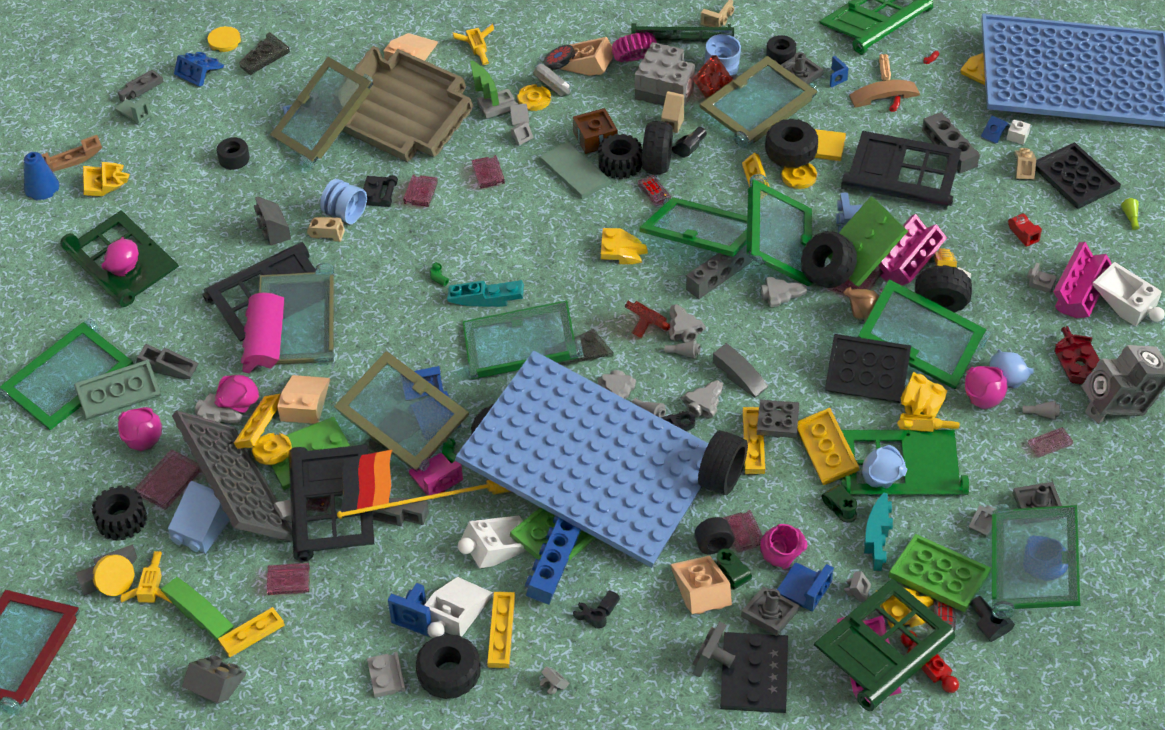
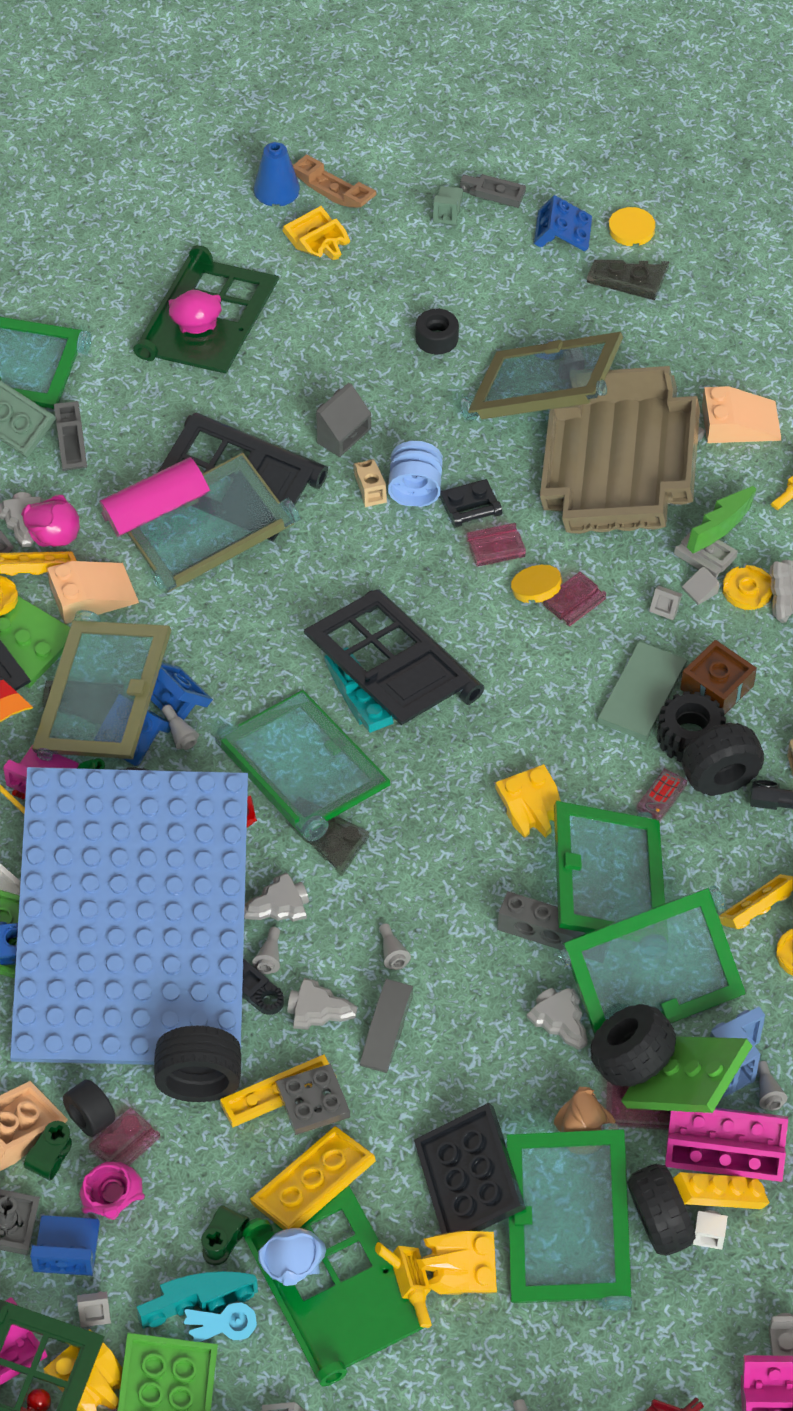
camera: 60 degrees right, 5 degrees up
(436, 274) = (371, 623): green arm -> none
(455, 390) = (183, 734): none -> light grey cone
(465, 182) = (536, 583): none -> yellow tile
(497, 258) = (406, 681): none -> black door
(647, 316) = (412, 879): clear red plate -> none
(684, 325) = (434, 929): light grey rock -> none
(905, 520) = (235, 1322): none -> medium azure piece
(985, 386) = (515, 1333): dark pink helmet -> none
(1012, 366) = (574, 1354): light blue helmet -> none

